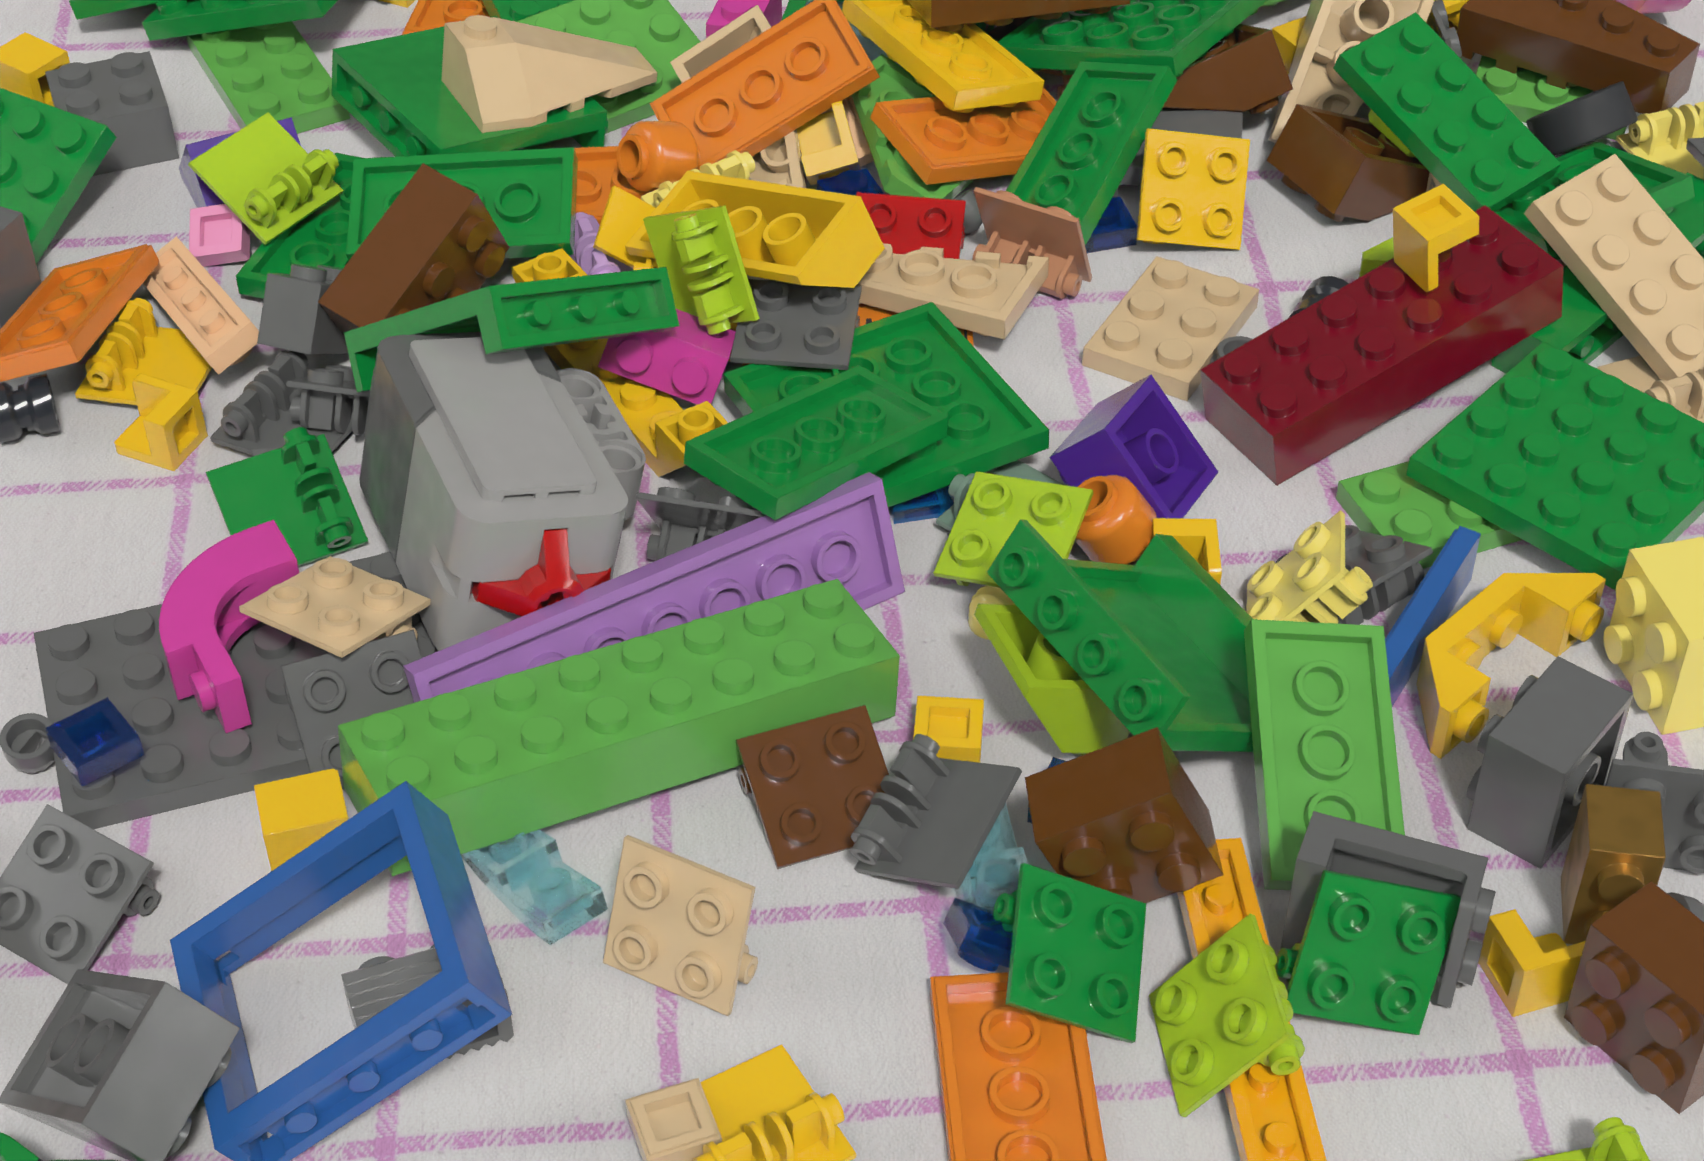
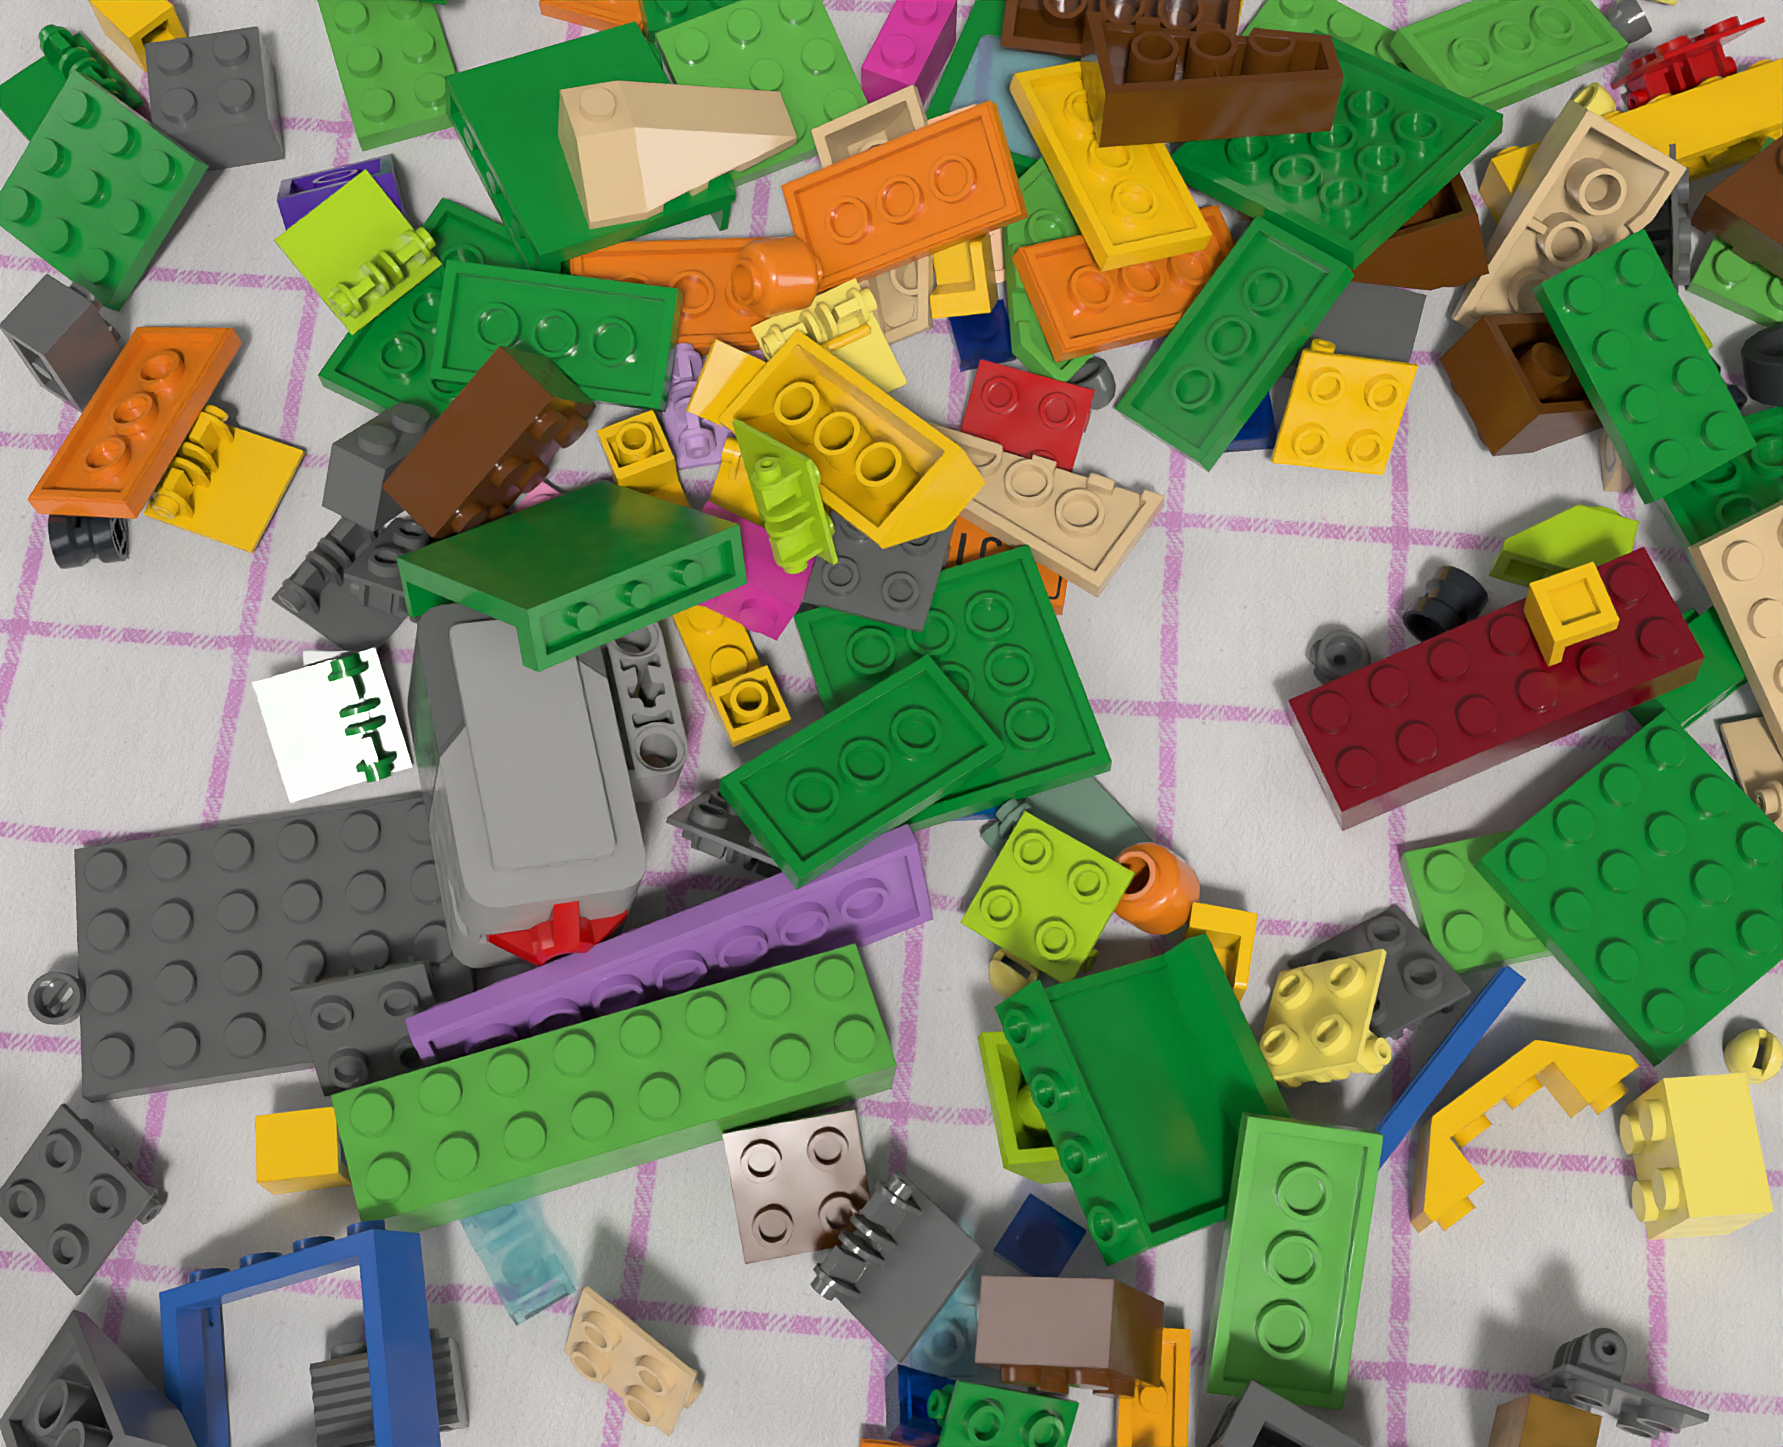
camera: 10 degrees right, 25 degrees up
(94, 741) = (111, 1033): clear blue plate -> none
(168, 423) = (224, 579): yellow panel -> none
(201, 307) = (274, 422): light nougat plate -> none
(204, 617) = (230, 882): dark pink arch -> none
(218, 236) = (302, 308): bright pink plate -> none
(337, 606) = (354, 913): tan hinge -> none
(953, 724) = (936, 1131): yellow plate -> none
(1030, 230) = (1137, 442): nougat hinge -> none
(1143, 440) = (1198, 796): dark purple slope -> none
(1170, 326) = (1281, 589): tan plate -> none
(1543, 756) = (1516, 1304): dark grey brick -> none

